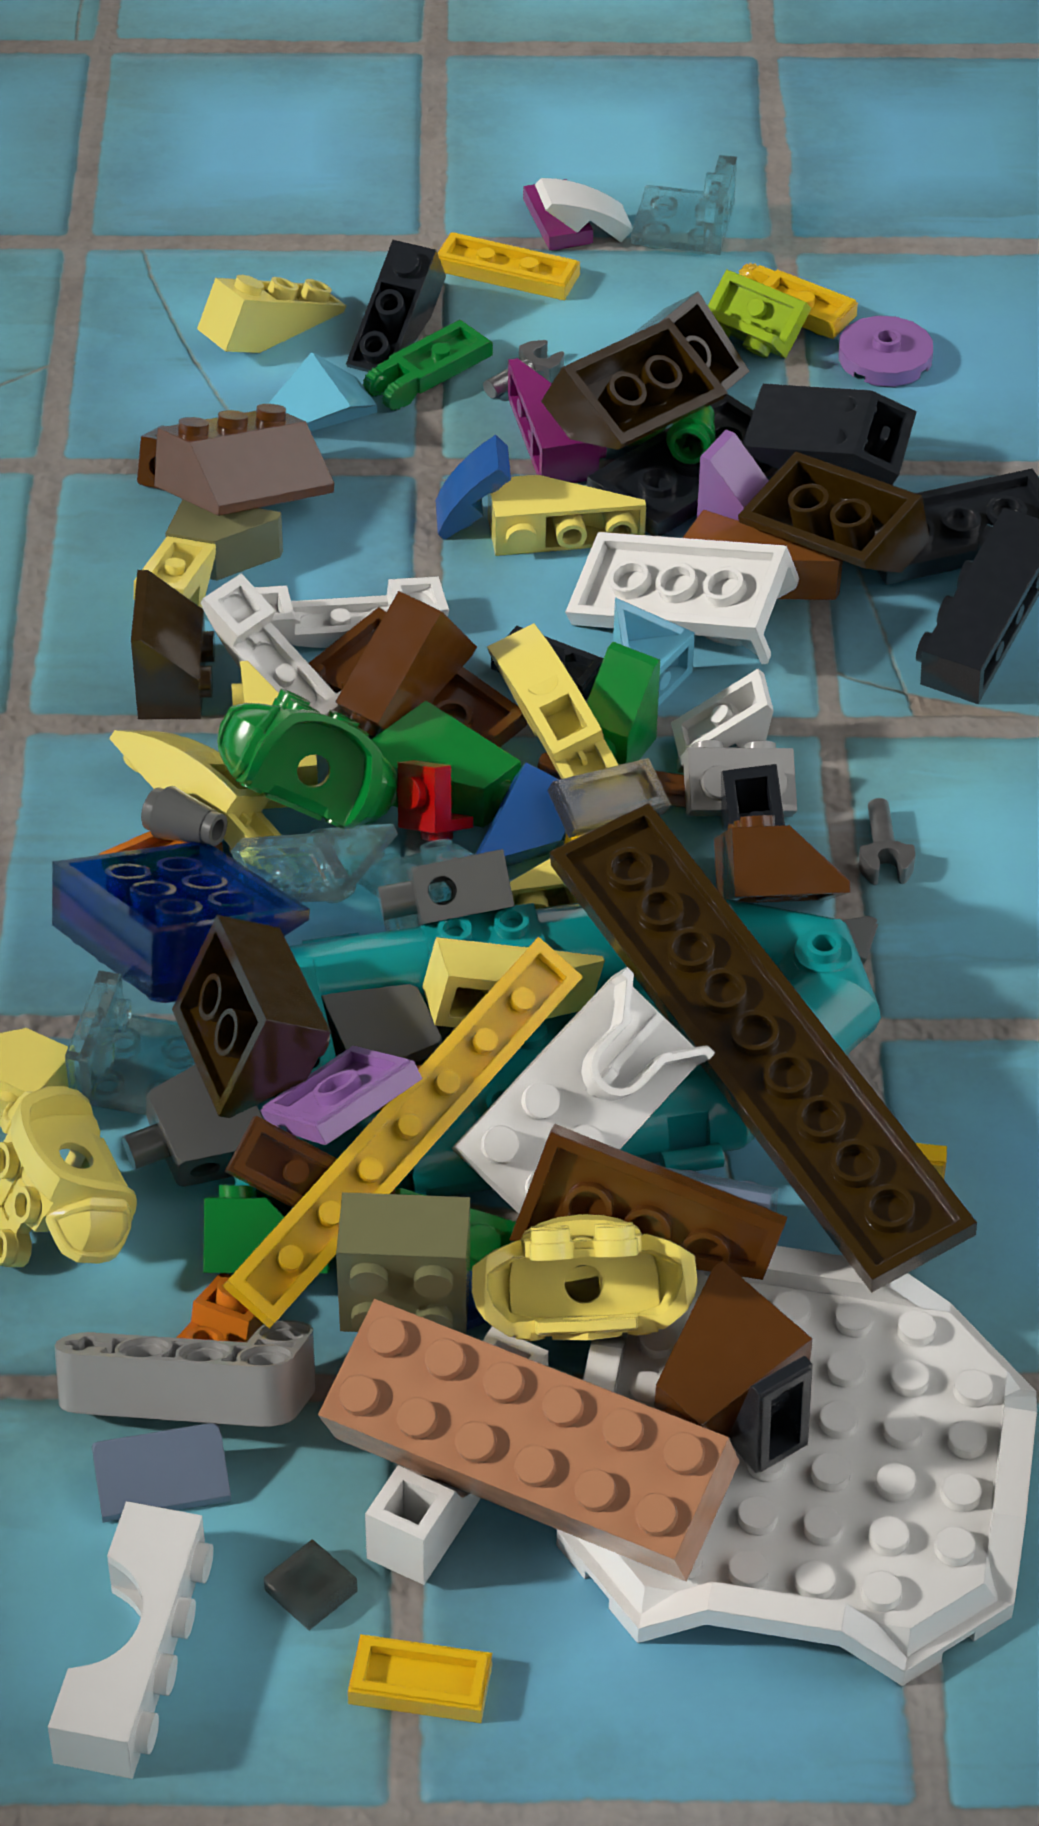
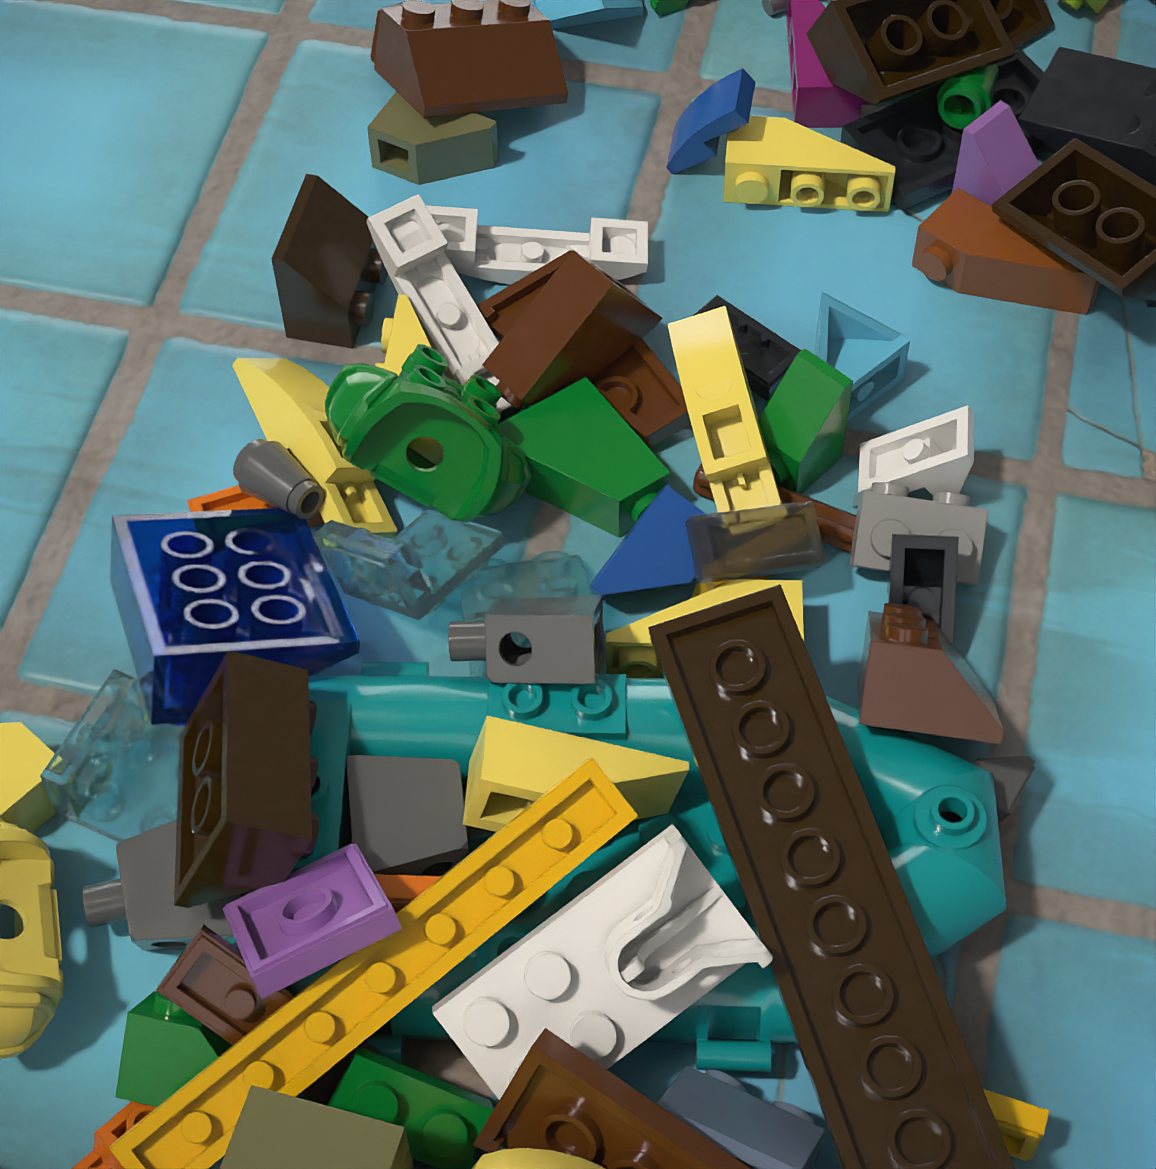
camera: 15 degrees right, 10 degrees up
(184, 566) = (371, 172): light yellow slope -> none
(426, 800) = (551, 503): red bracket -> none
(697, 583) = (915, 279): white plate -> none
(884, 847) = (1071, 648): flat silver bar -> none

